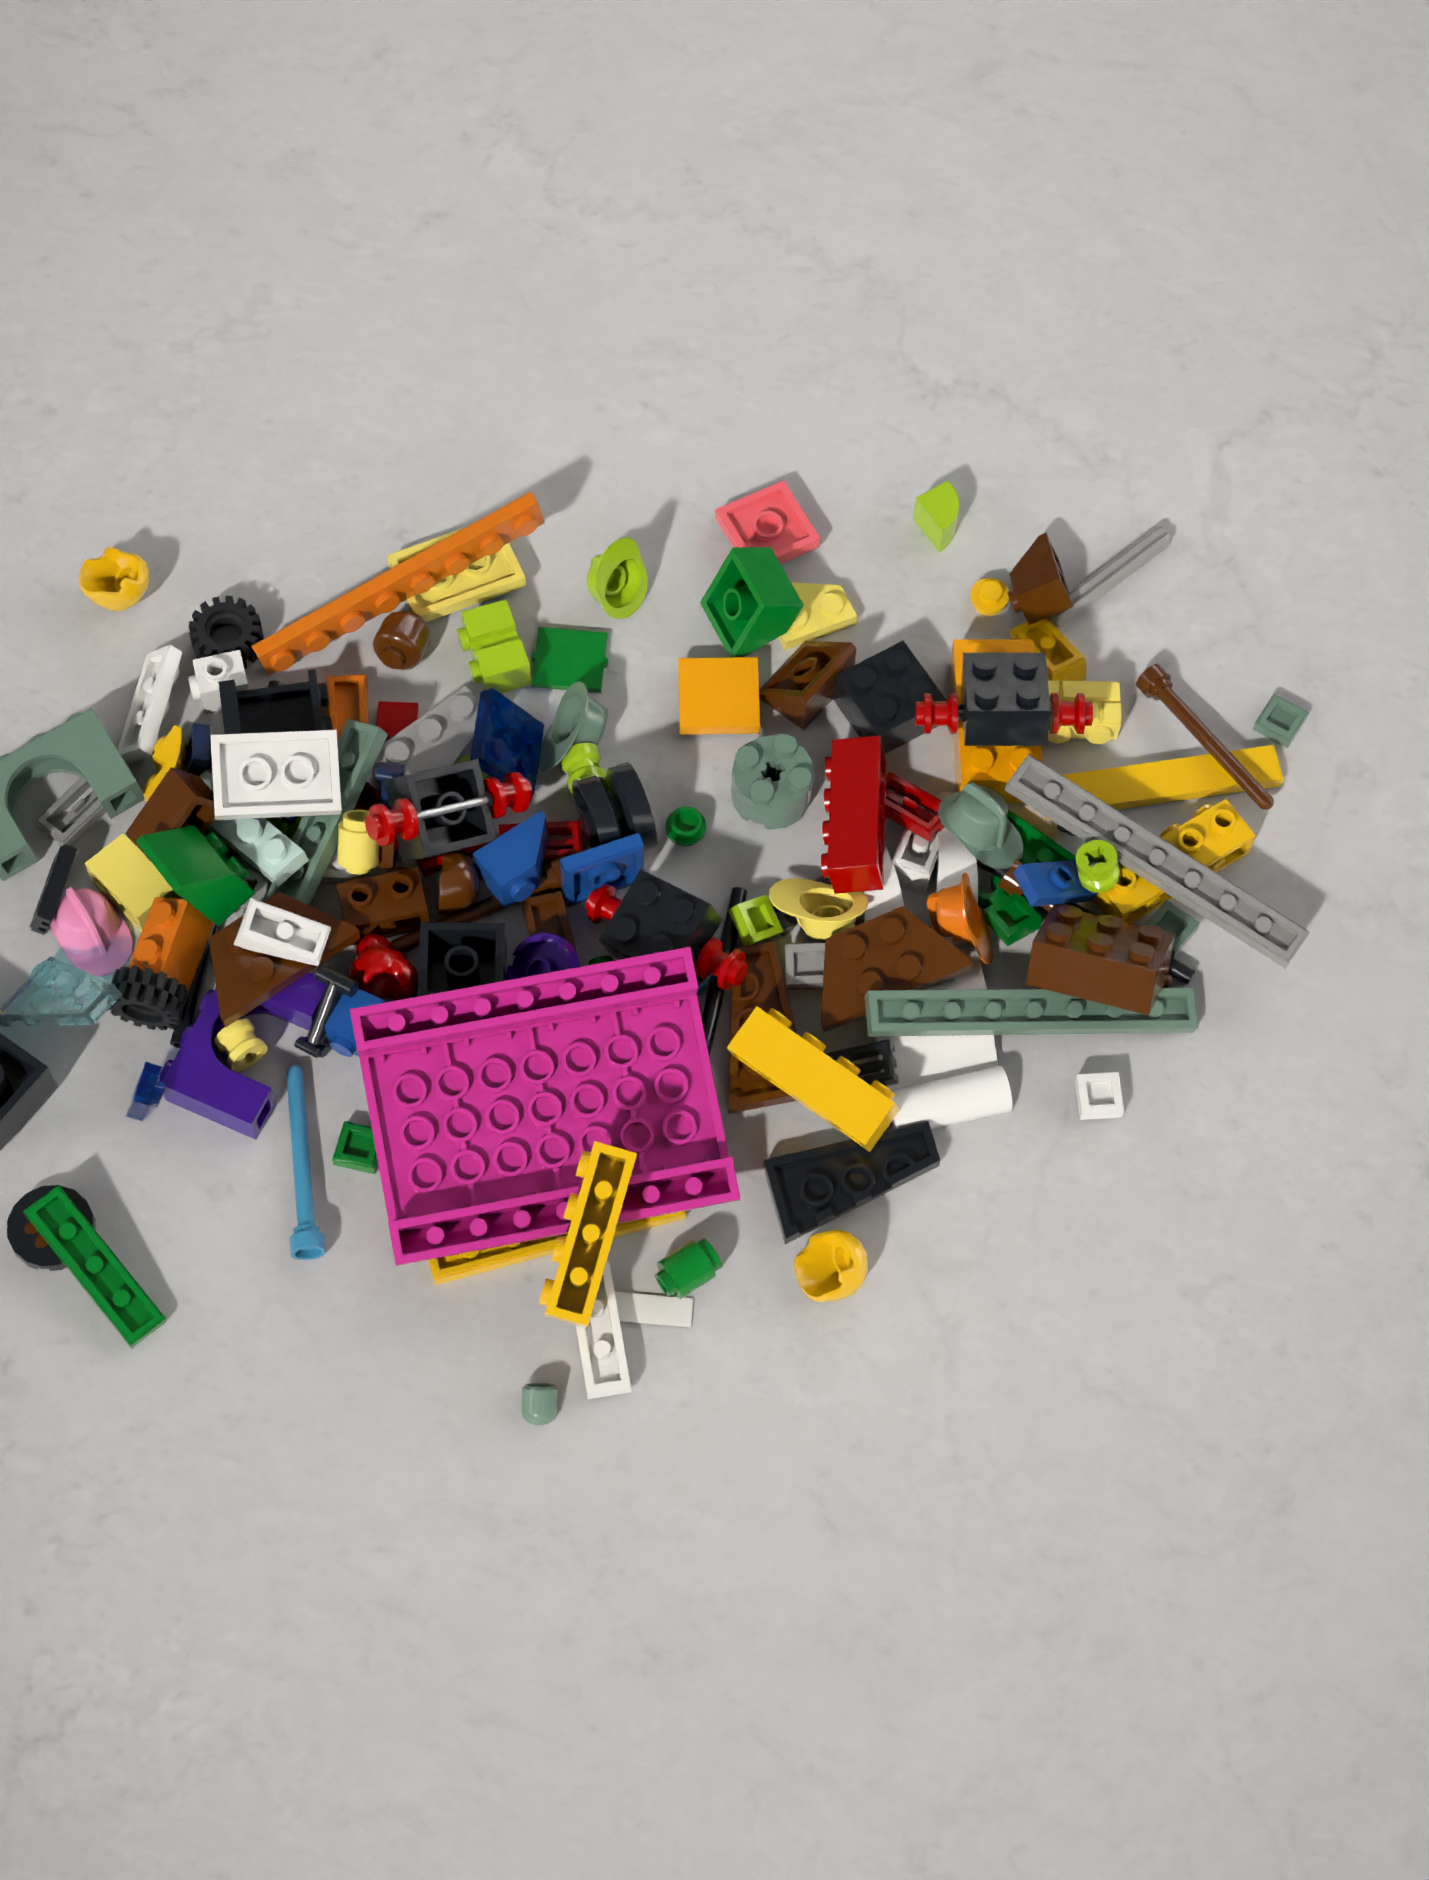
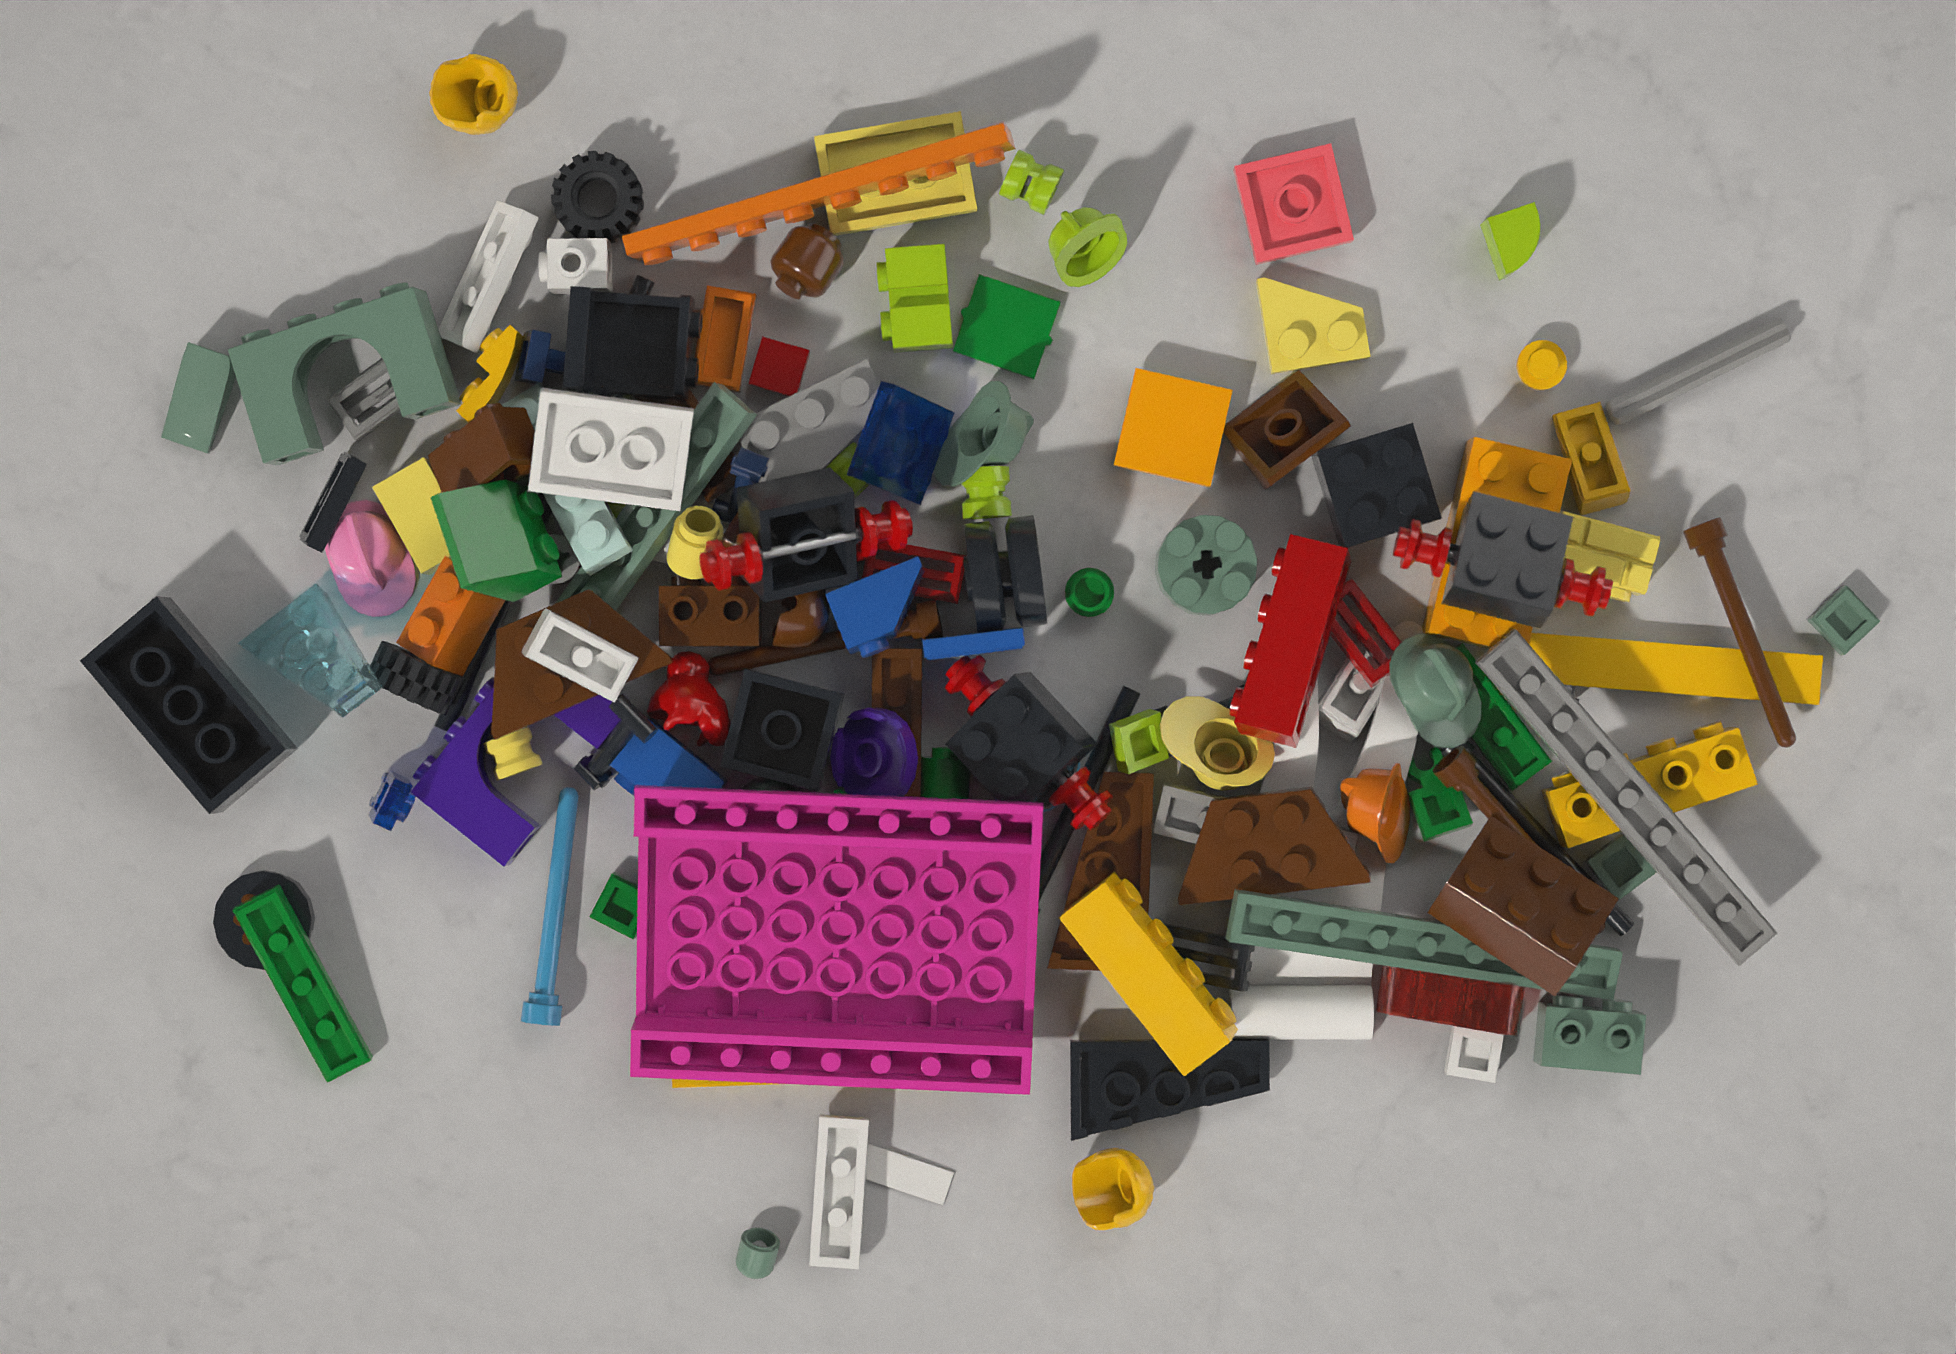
camera: 15 degrees right, 25 degrees up
(570, 554) = (1042, 186): none -> lime wheel
(590, 1234) = (849, 1111): yellow brick -> none
(688, 1268) = (954, 1147): green brick -> none
(750, 600) = (1244, 315): green slope -> none
(1039, 583) = (1607, 369): reddish brown slope -> none
(1052, 883) = (1500, 791): blue plate -> none
(1061, 1055) = (1450, 1000): none -> clear red beam
(1103, 874) = (1555, 804): lime wheel -> none
(1188, 1059) = (1589, 1036): none -> sand green brick

